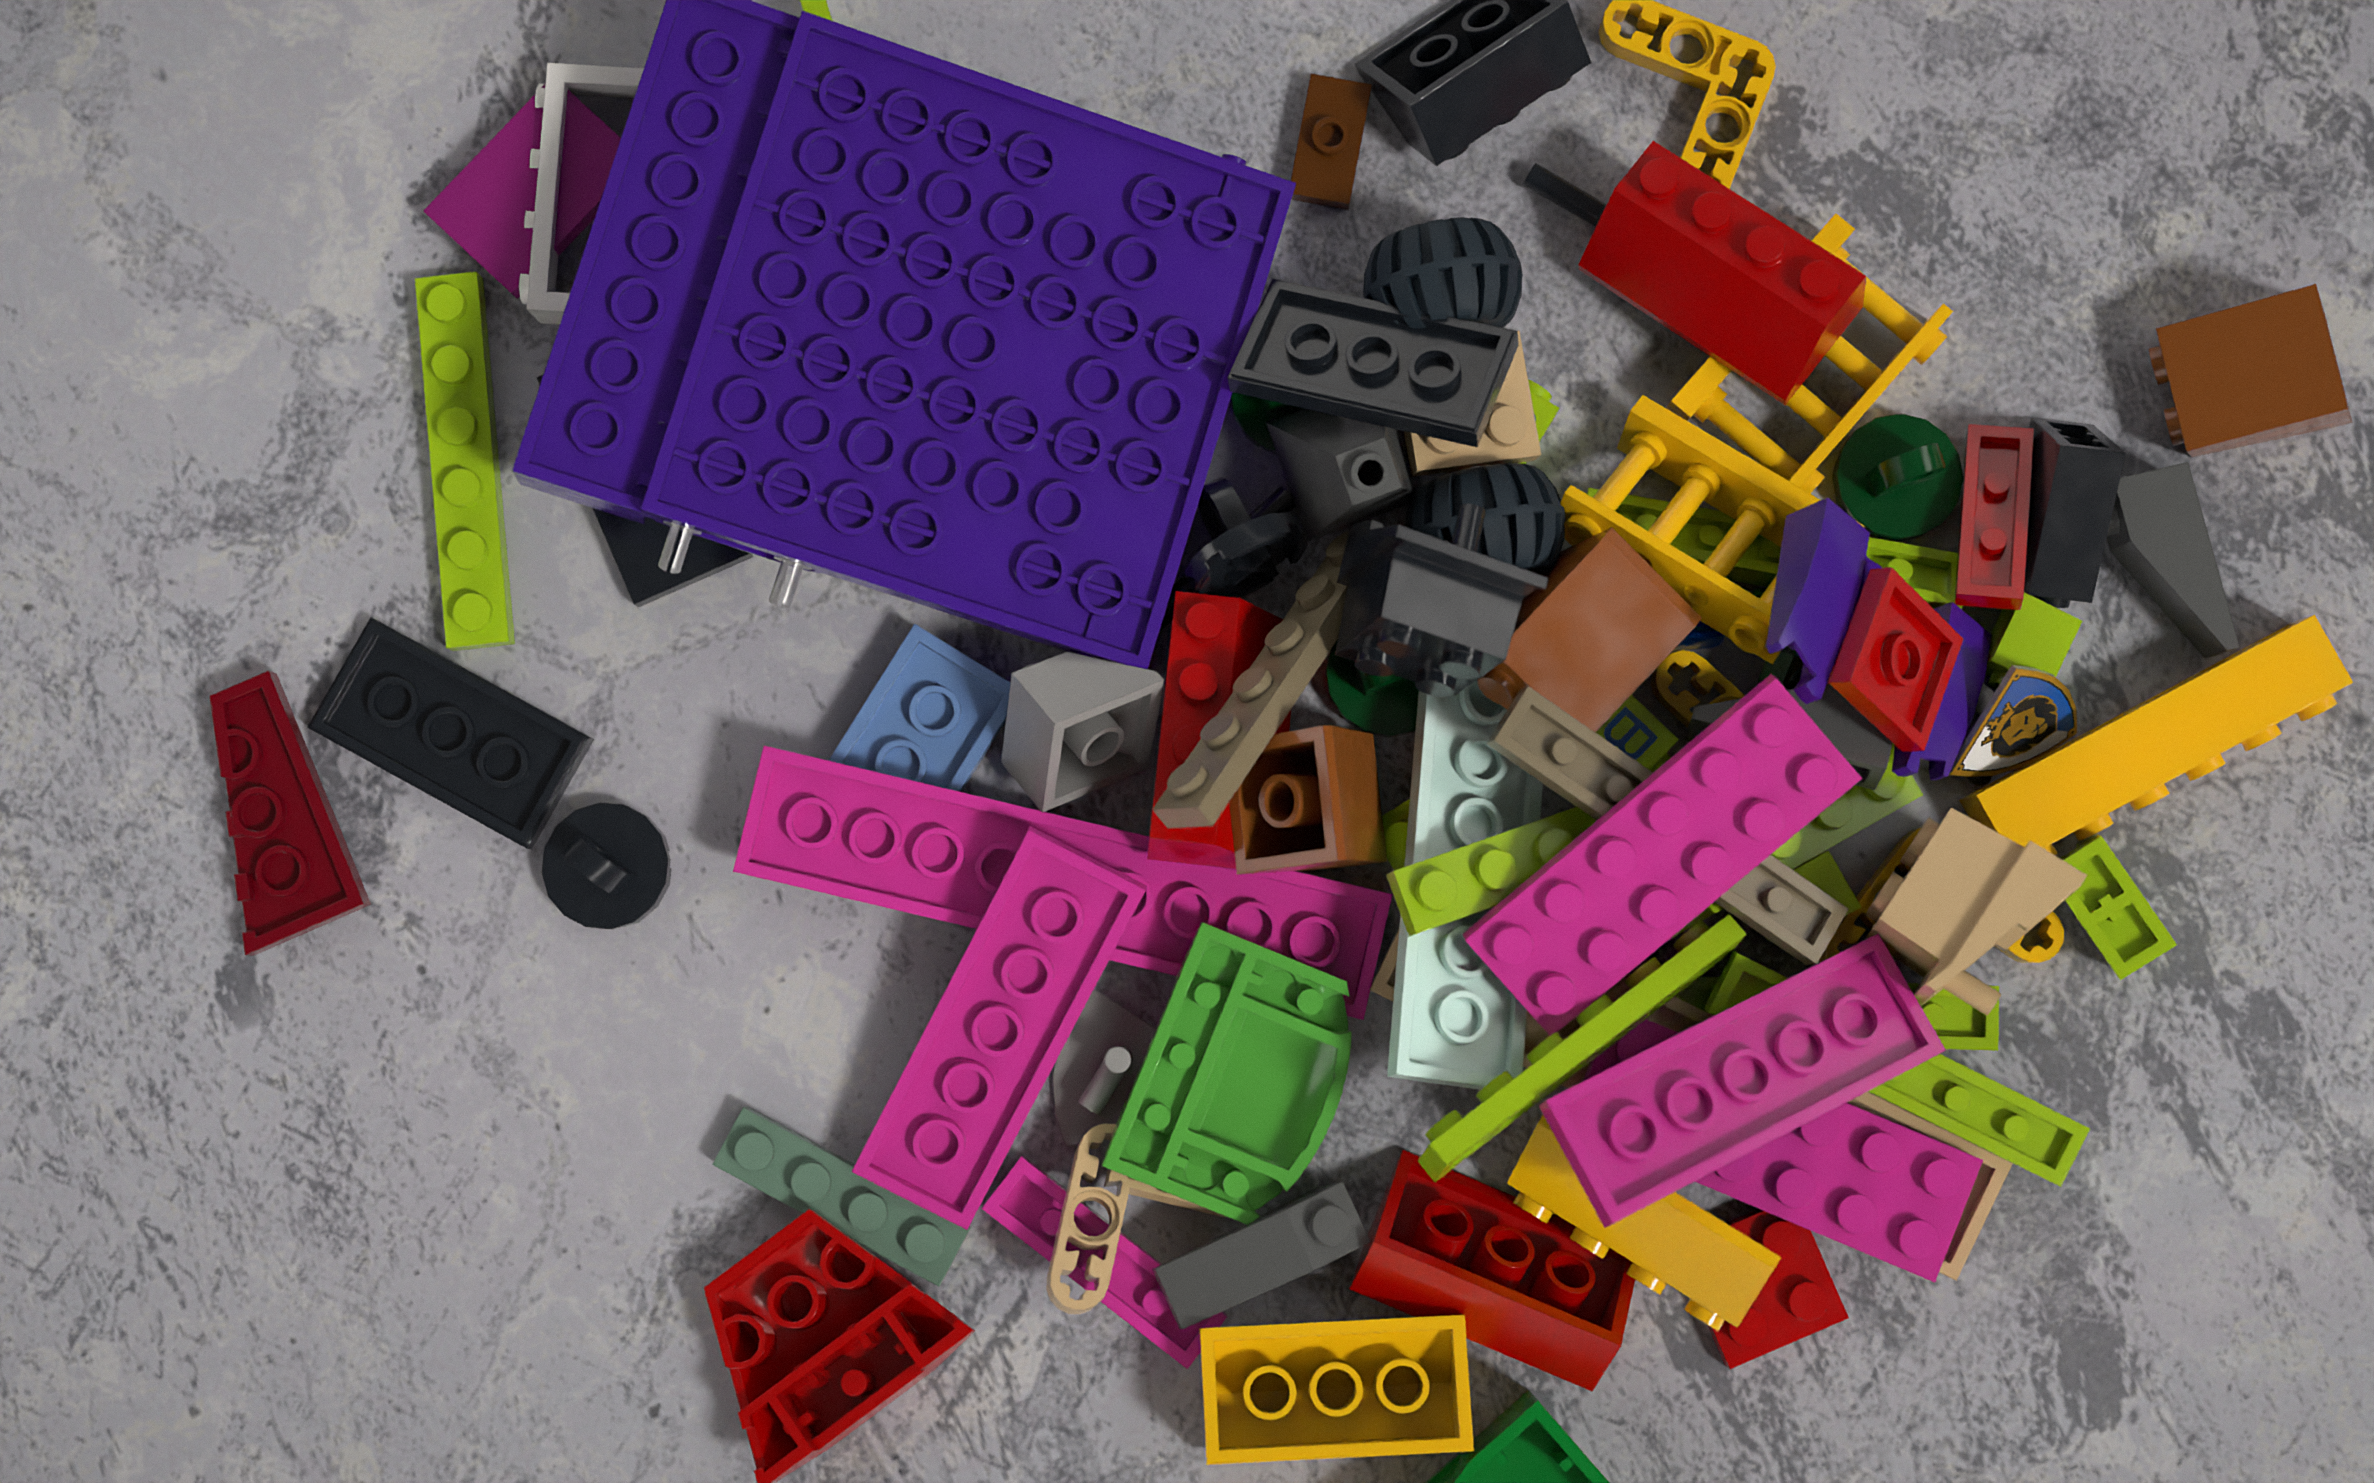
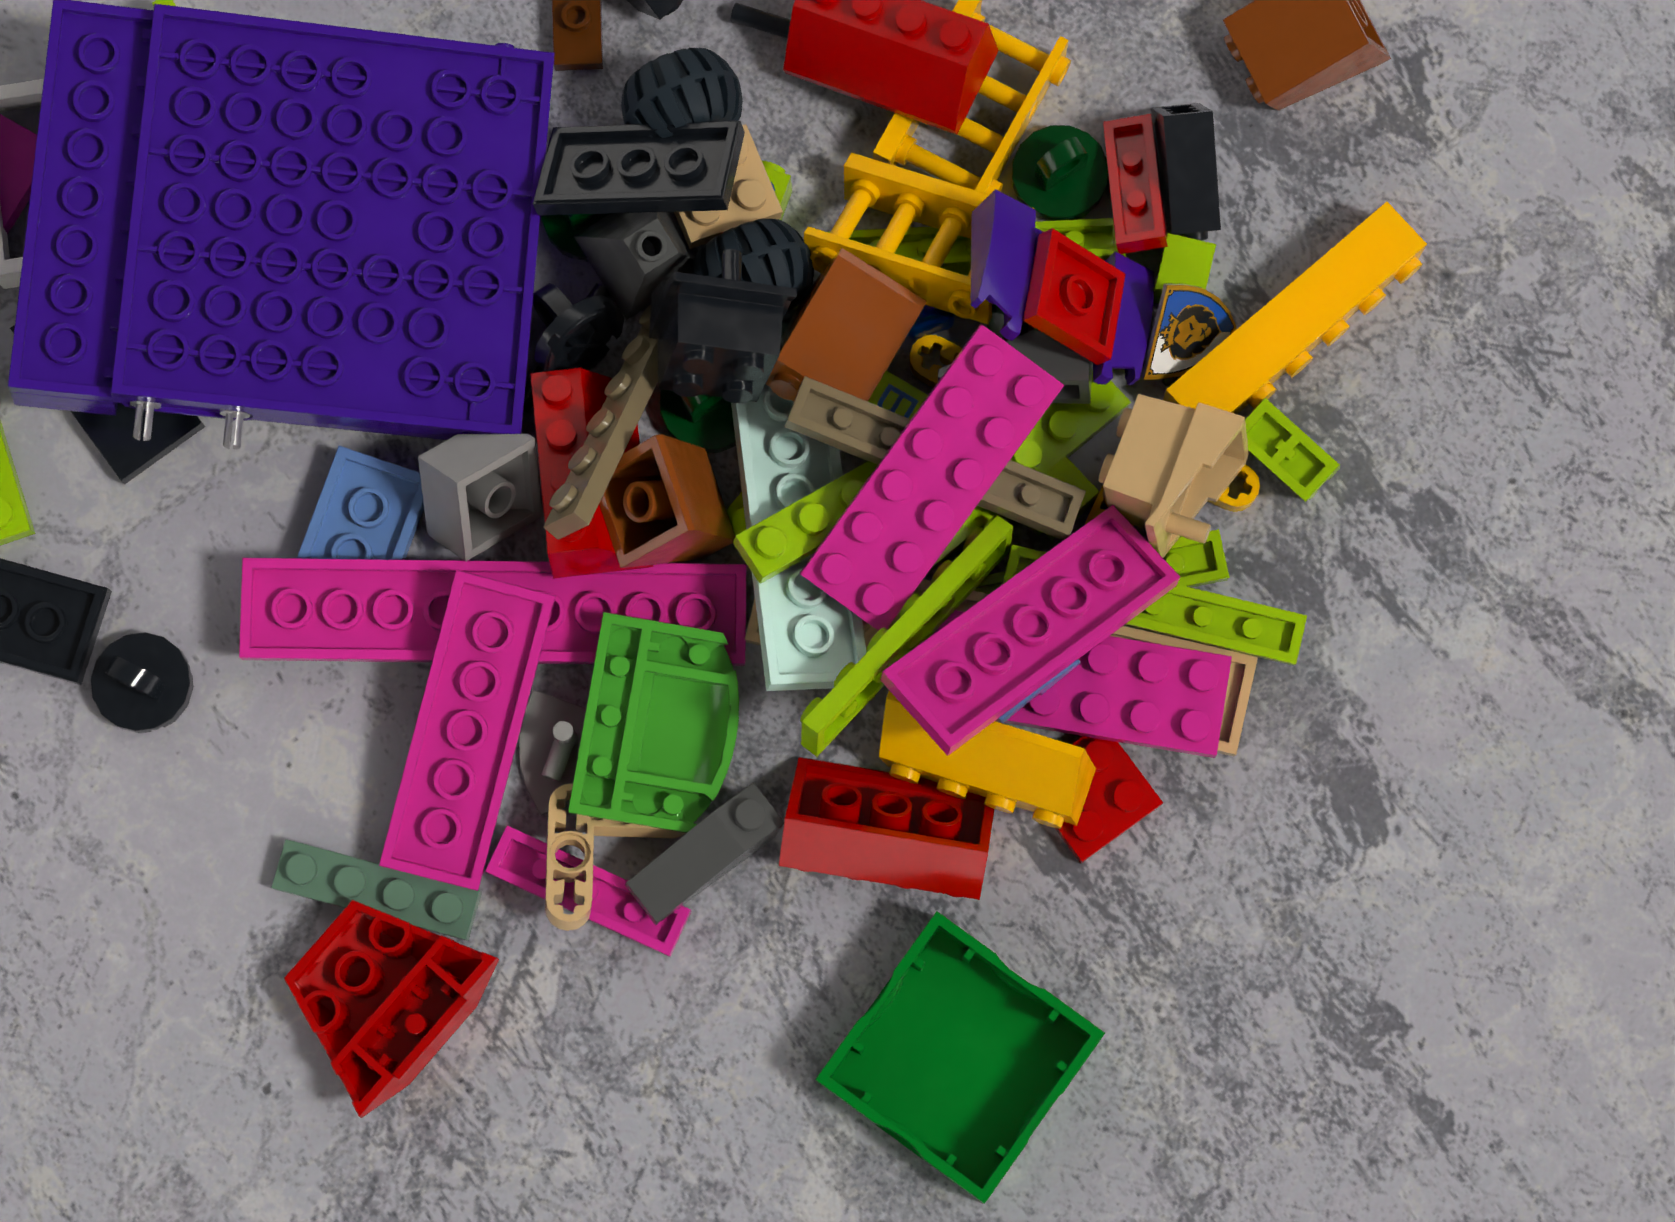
camera: 15 degrees left, 5 degrees down
(1336, 1389) = (783, 942): yellow slope -> none
(2167, 549) = (1268, 179): dark grey slope -> none

